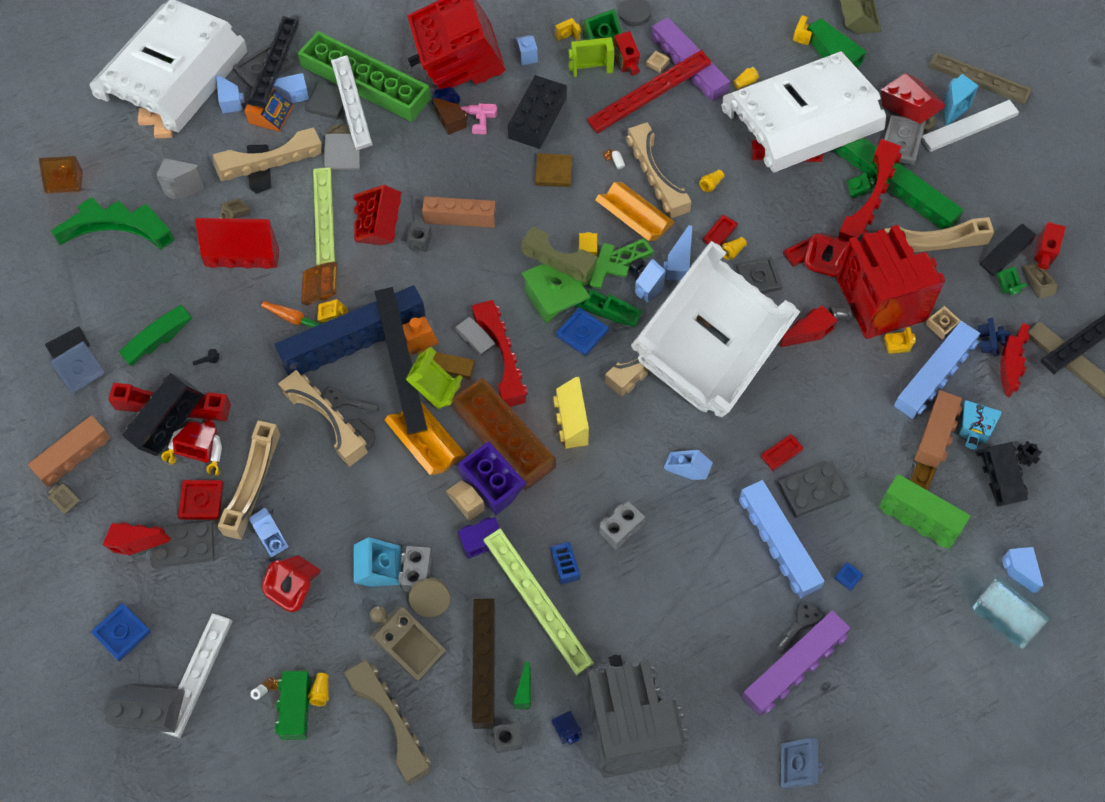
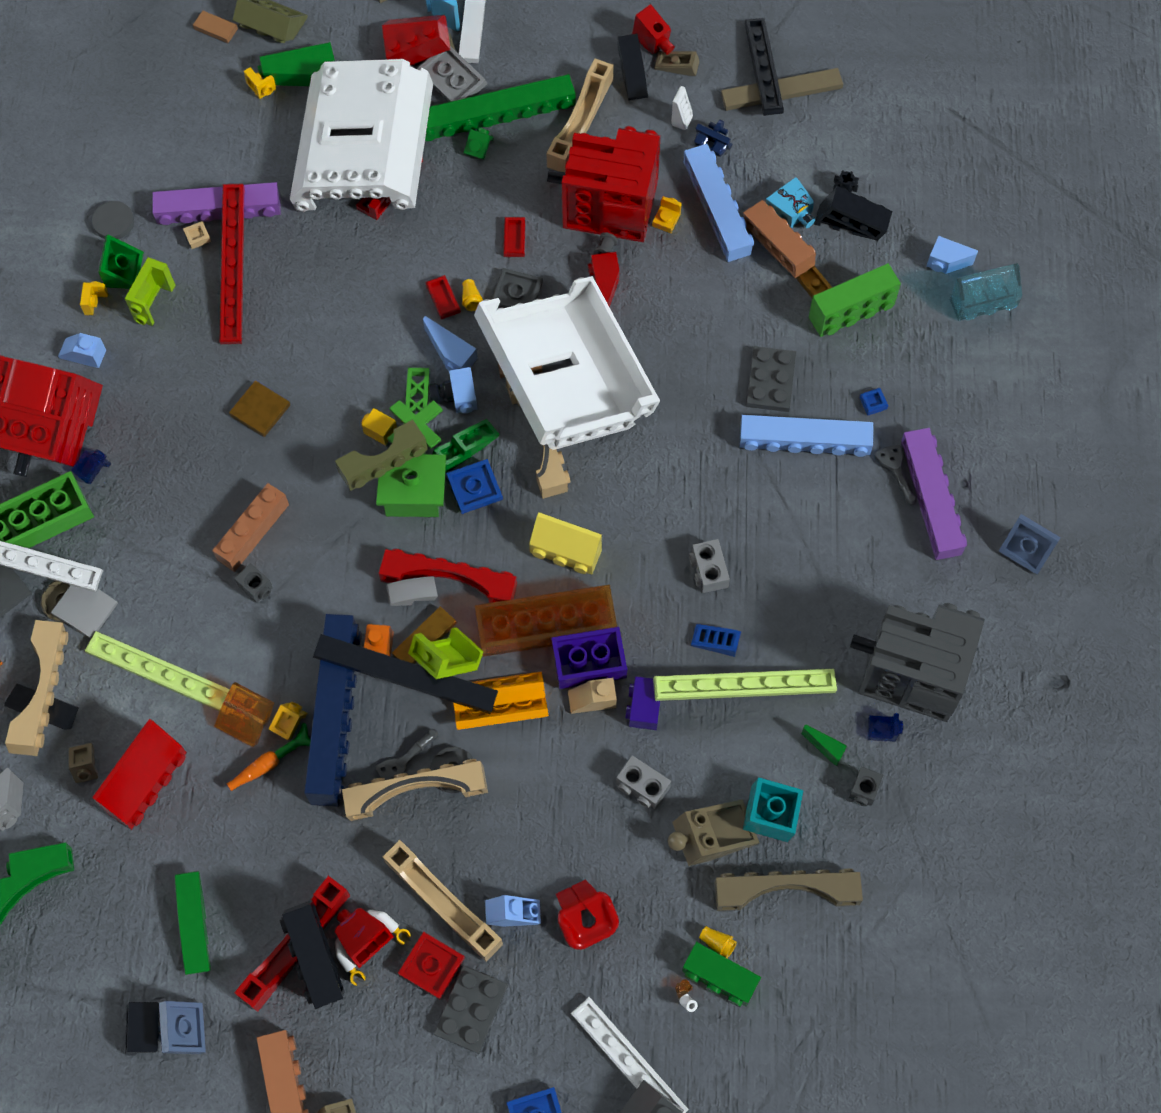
camera: 60 degrees left, 5 degrees up
(133, 539) = (438, 1060): red slope -> none
(212, 357) = (259, 874): black hand -> none
(376, 215) = (196, 613): red wedge -> none
(376, 563) = (613, 819): medium azure slope -> none
(429, 597) = (683, 784): dark tan tile -> none
(445, 674) = (773, 809): none -> teal brick
(450, 115) = (117, 472): reddish brown slope -> none
(482, 112) = (135, 438): bright pink piece -> none
(483, 664) = (779, 767): dark brown brick -> none
(537, 111) = (177, 383): black brick -> none
(615, 156) = (286, 340): white arm -> none
(626, 53) = (172, 254): red torso -> none
(635, 211) = (366, 359): light orange slope -> none
(673, 199) = (376, 316): tan arch -> none
(689, 464) = (682, 471): light blue slope -> none
(710, 181) = (379, 270): yellow cone -> none
(746, 78) = (278, 165): yellow cone -> none
(782, 452) = (717, 383): red tile -> none
(815, 249) = (522, 217): red piece -> none
(885, 157) = (472, 100): red arch -> none
(943, 322) = (672, 167): tan piece -> none
(996, 300) = (681, 110): none -> white slope
(1010, 281) = (665, 86): green bracket -> none
(1012, 361) = (750, 140): red slope -> none

